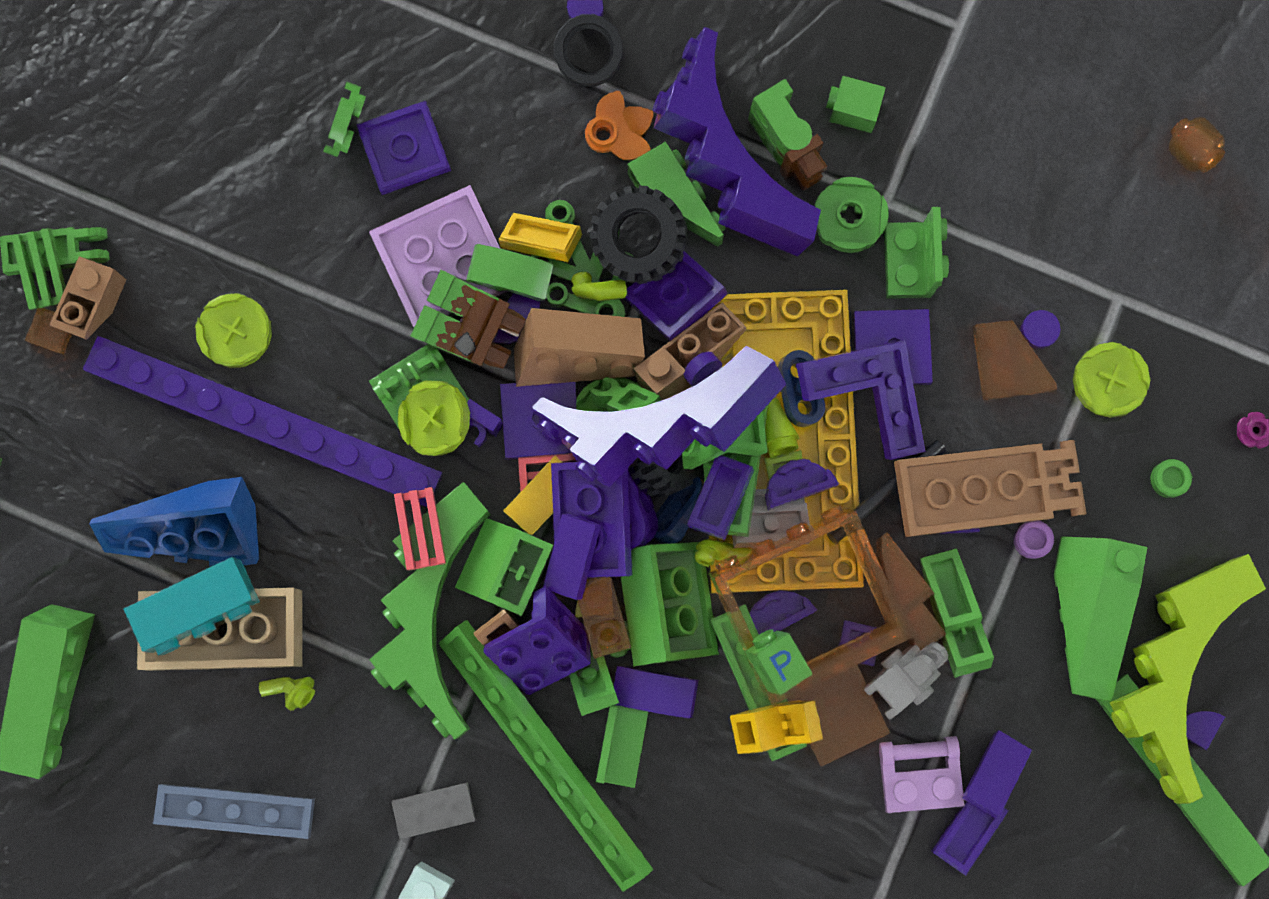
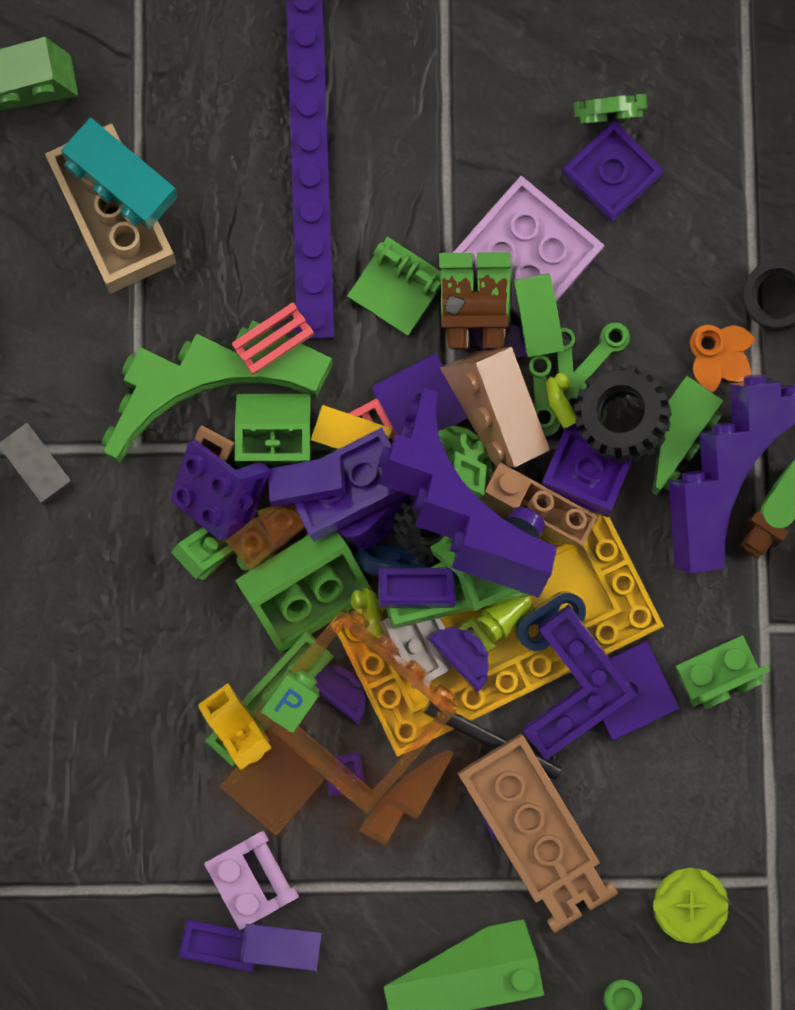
camera: 60 degrees right, 0 degrees up
(197, 522) = (196, 147): blue wedge -> none
(233, 330) = (379, 99): lime tile -> none
(297, 692) = (85, 299): lime plate -> none
(434, 418) = (377, 307): lime tile -> none
(483, 421) = (395, 349): dark purple tile -> none
(540, 237) = (584, 328): yellow tile -> none
(546, 758) = (121, 540): bright green plate -> none
(622, 746) = (161, 601): bright green panel -> none
(655, 691) = (221, 610): dark purple slope -> none
(867, 202) = (754, 608): bright green plate -> none
(908, 676) = (330, 826): light grey hinge -> none
(957, 613) = (410, 850): bright green slope -> none
(1008, 362) = (663, 803): clear orange wing -> none
(1033, 539) = (509, 894): medium lavender tile -> none
(1040, 329) = (708, 819): dark purple tile -> none

